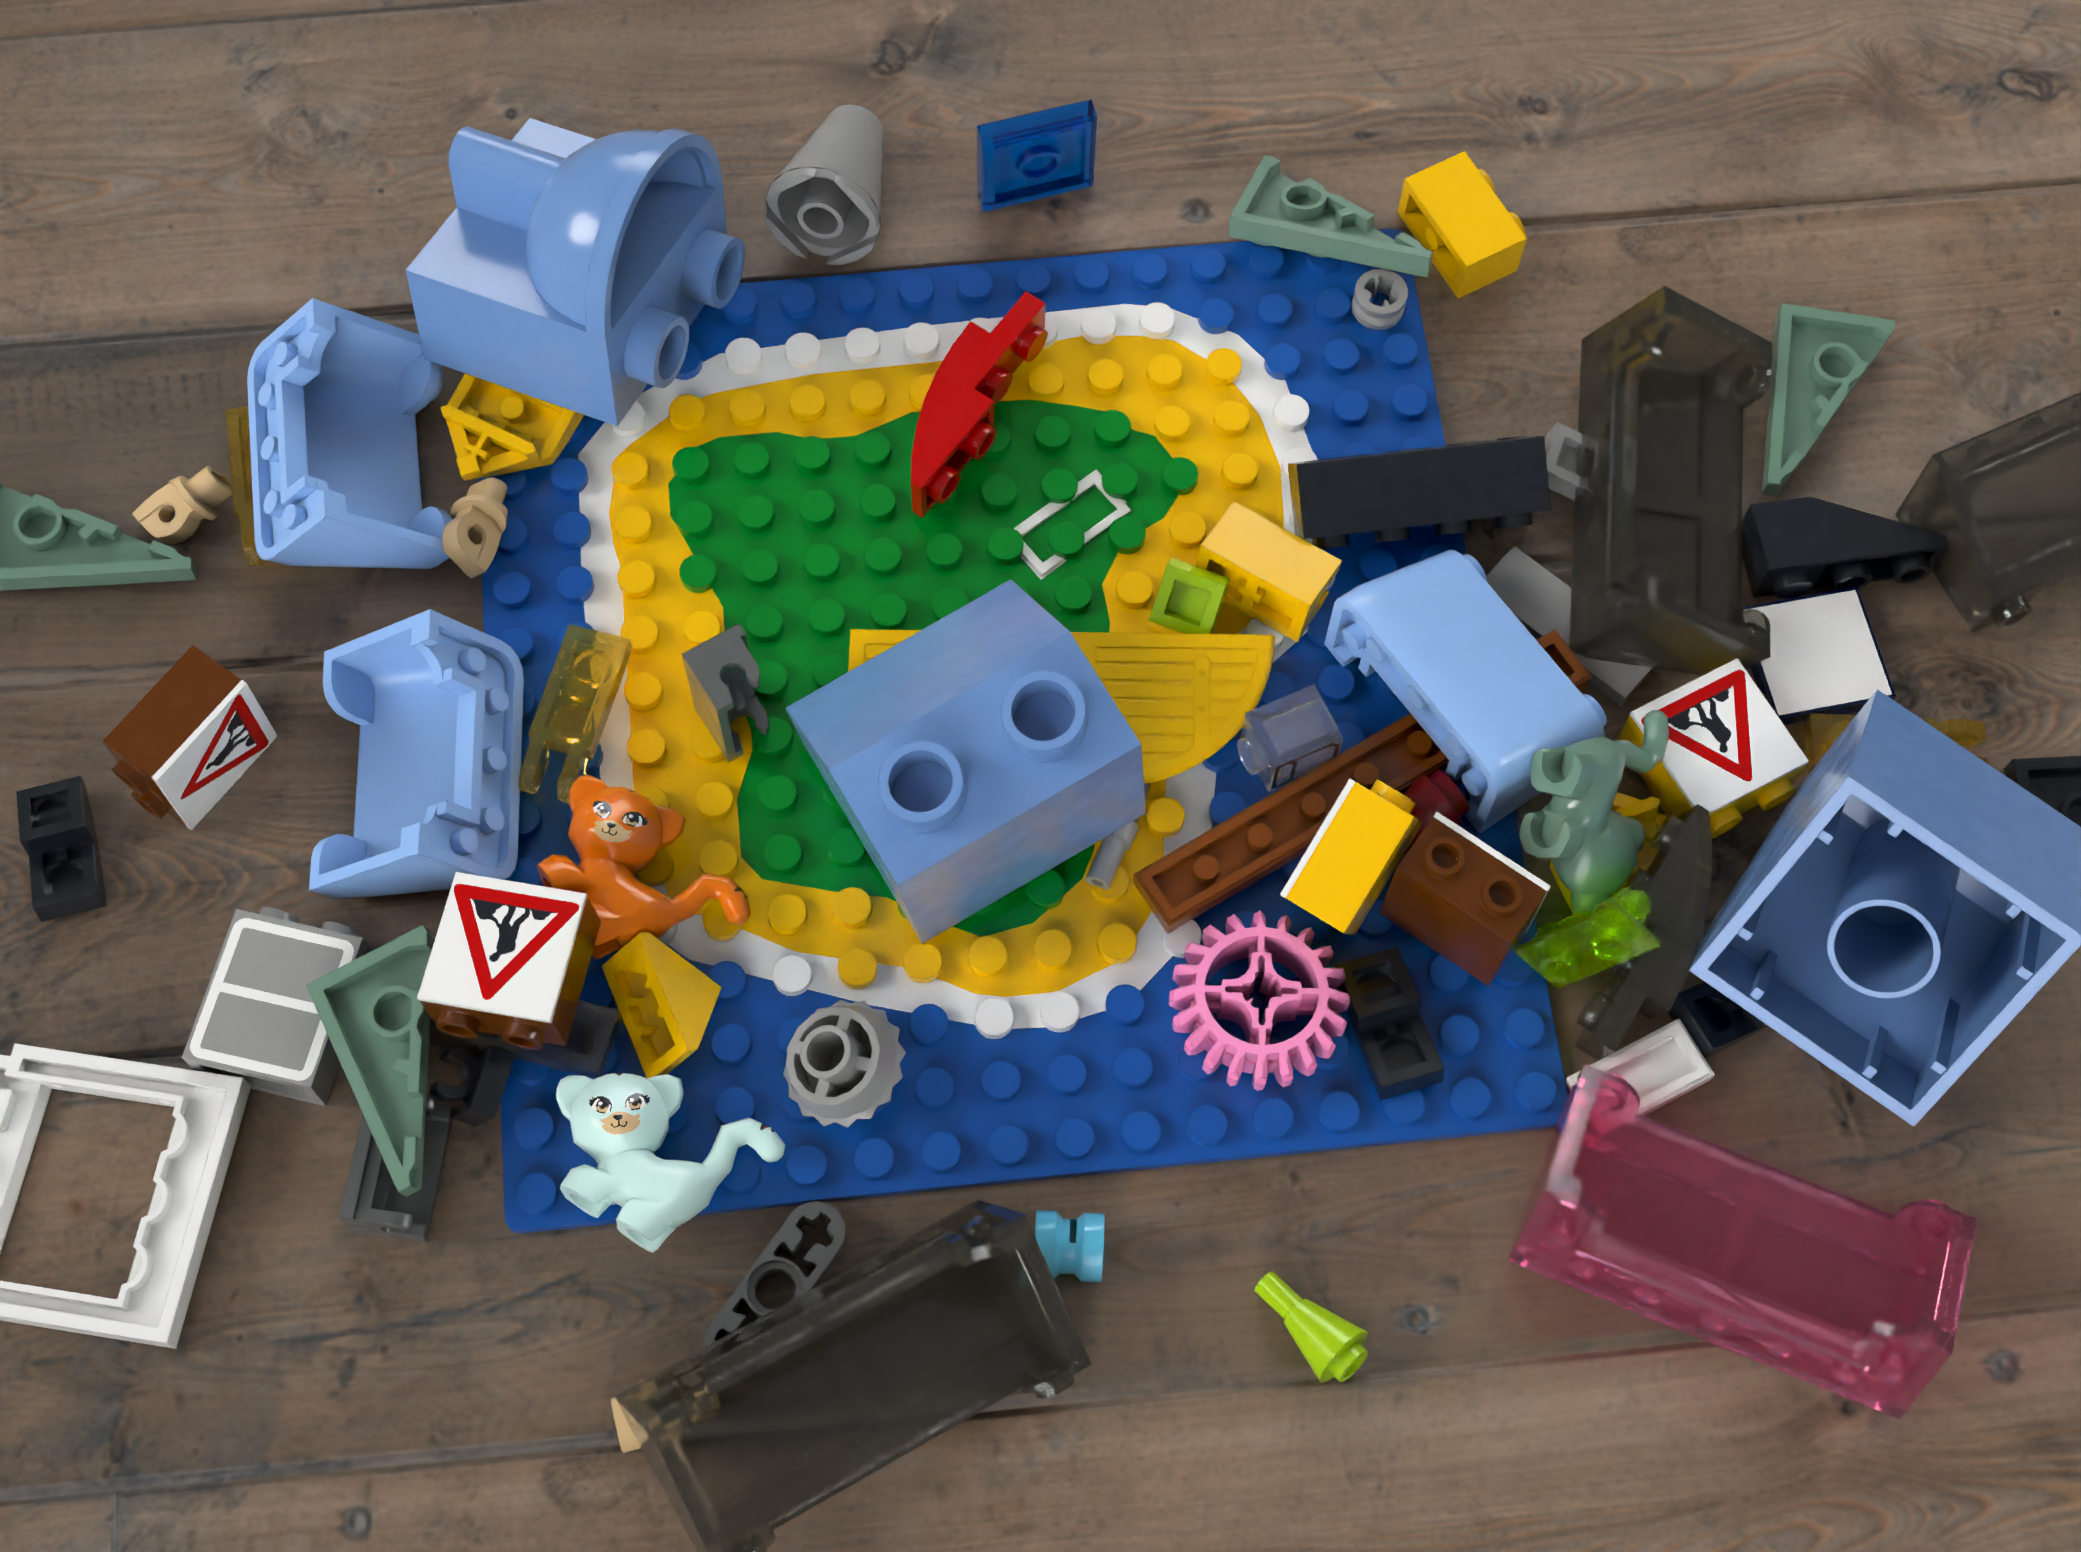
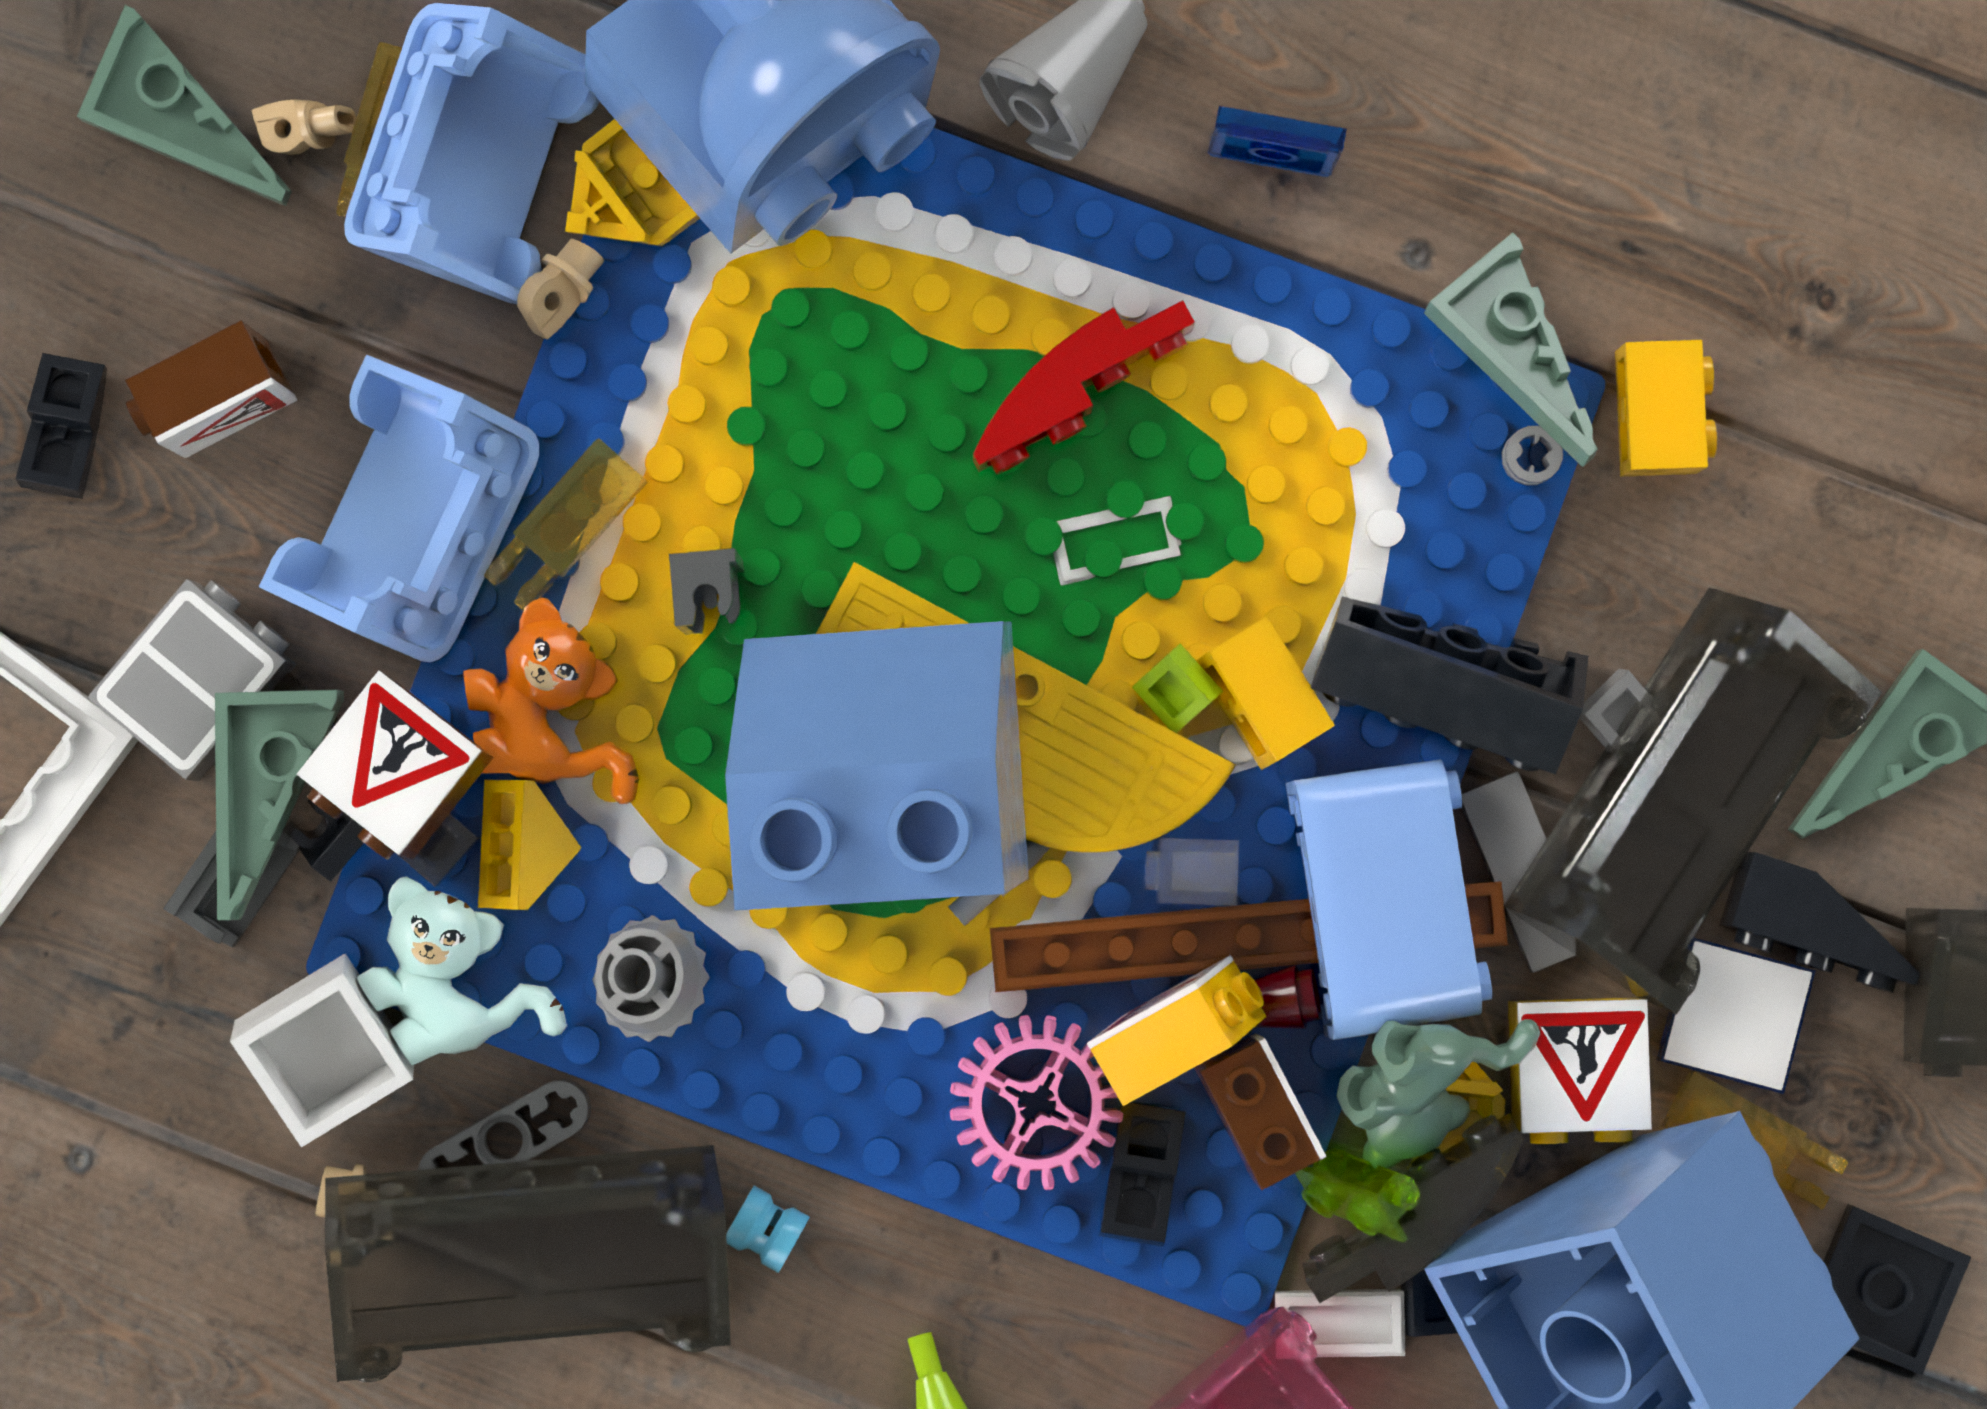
camera: 25 degrees right, 20 degrees up
(558, 1273) = (321, 1051): none -> white piece

